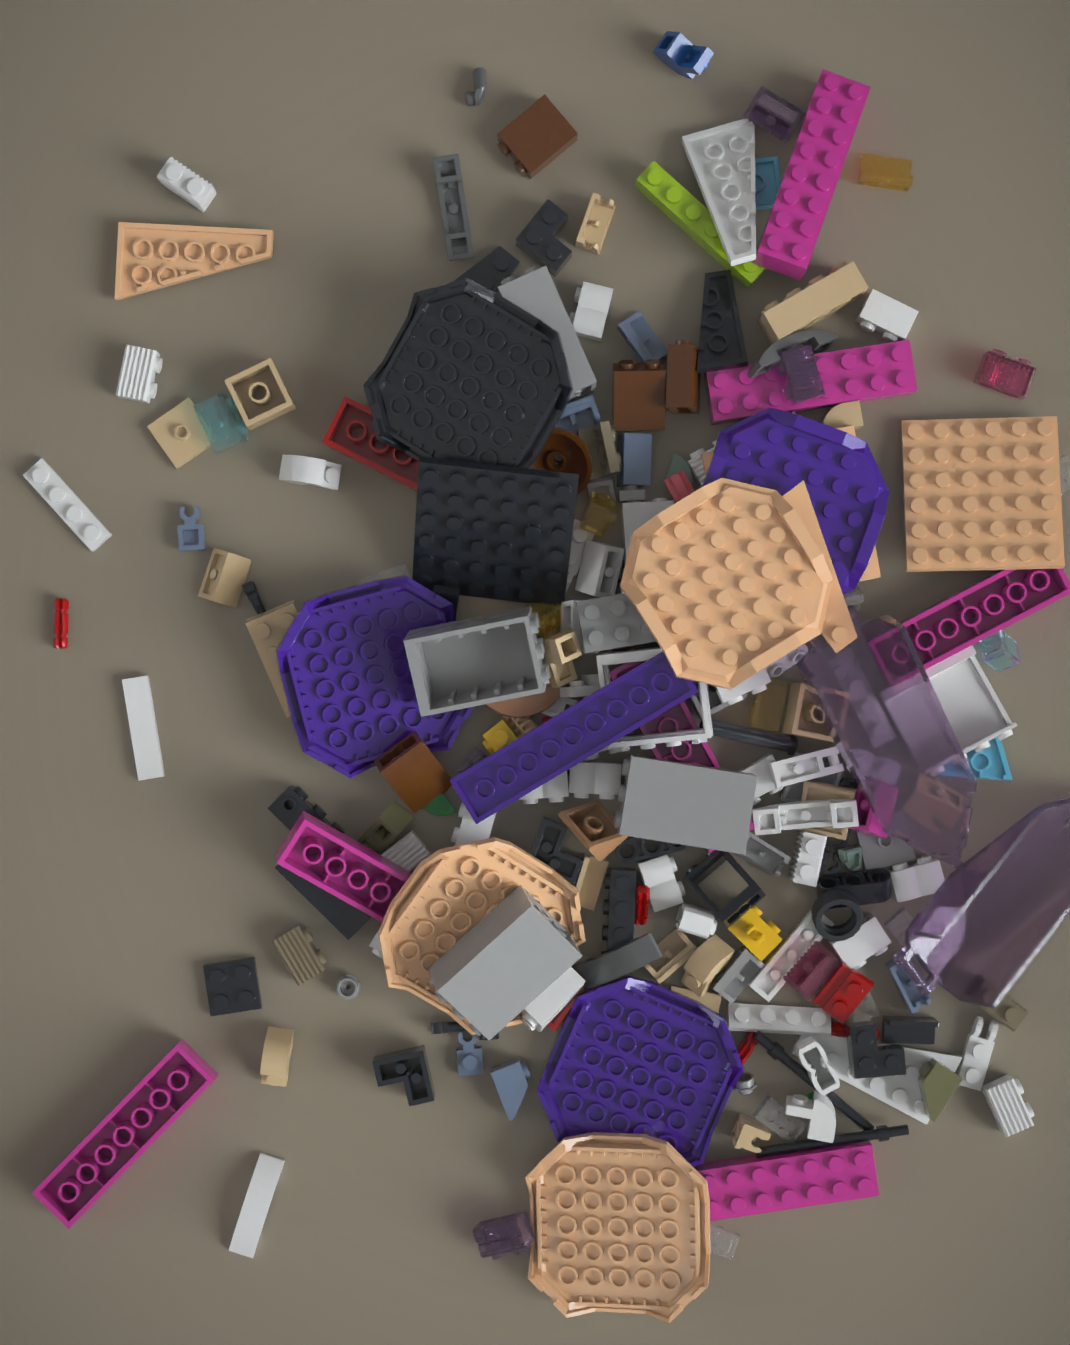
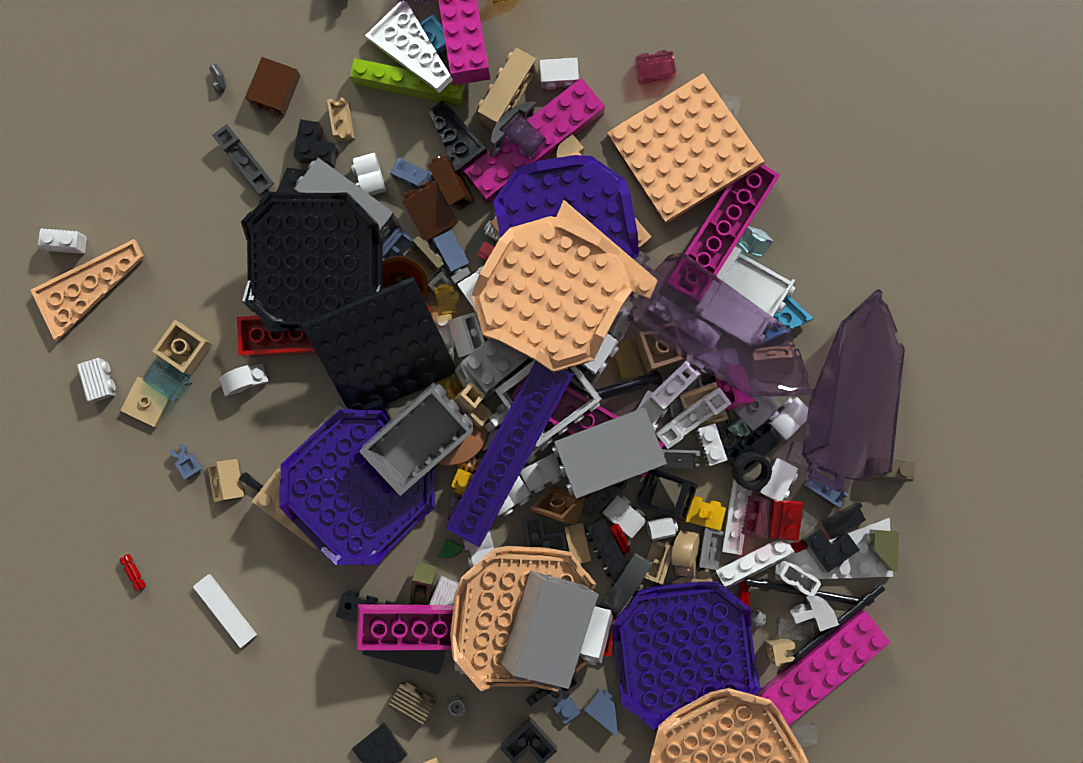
camera: 30 degrees left, 5 degrees down
(67, 505) = (95, 491): white plate -> none
(414, 772) = (419, 536): reddish brown brick -> none
(977, 1054) = (897, 510): white hinge -> none
(1007, 1105) = (937, 532): white brick -> none

